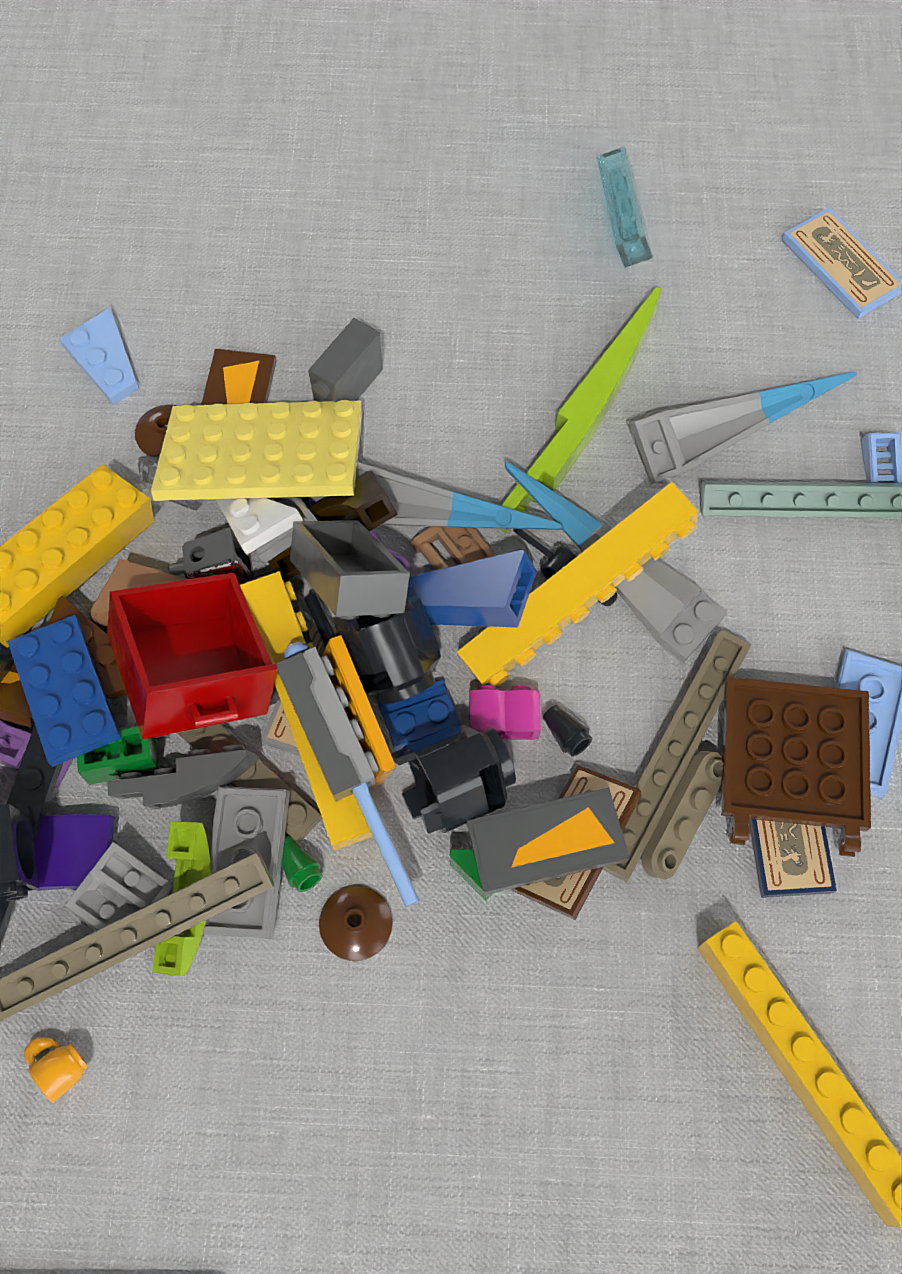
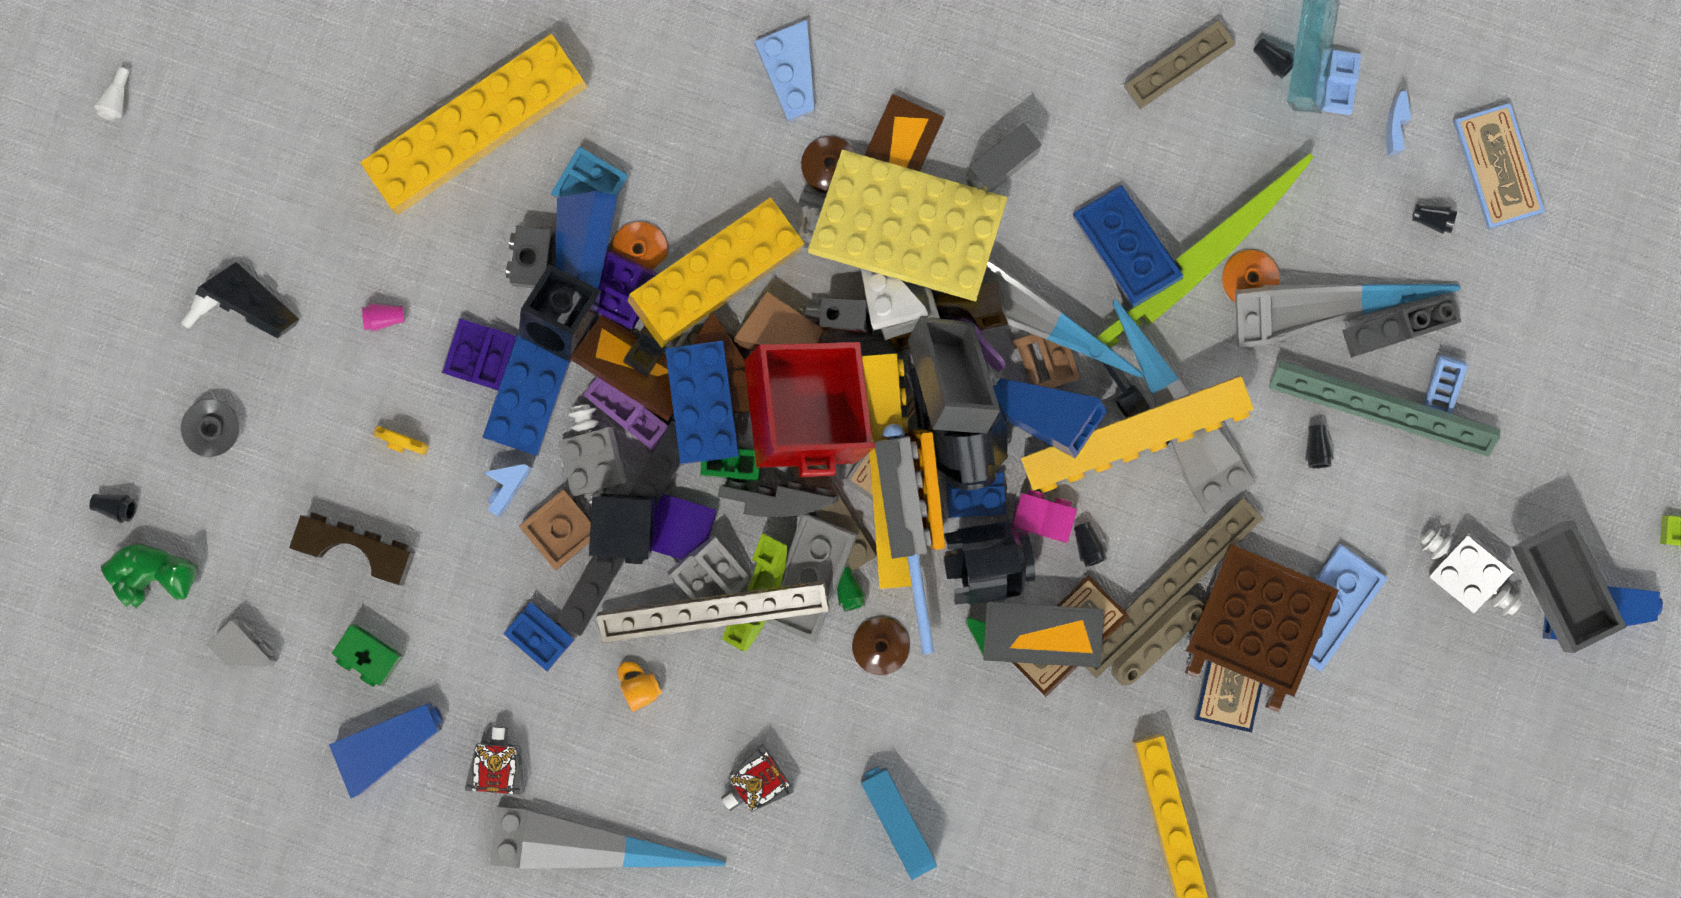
camera: 15 degrees right, 20 degrees up
(237, 1148) = (757, 782): none -> torso
(438, 1143) = (898, 822): none -> dark azure slope
(498, 255) = (1179, 65): none -> dark tan plate
(504, 418) = (1127, 246): none -> blue tile
(590, 226) = (1275, 58): none -> black cone
(628, 411) = (1241, 264): none -> orange dish
(662, 233) = (1341, 82): none -> light blue slope
(730, 254) = (1398, 115): none -> light blue slope
(780, 558) = (1318, 448): none -> black cone
(804, 317) = (1435, 217): none -> black cone
(816, 419) = (1401, 326): none -> dark grey slope

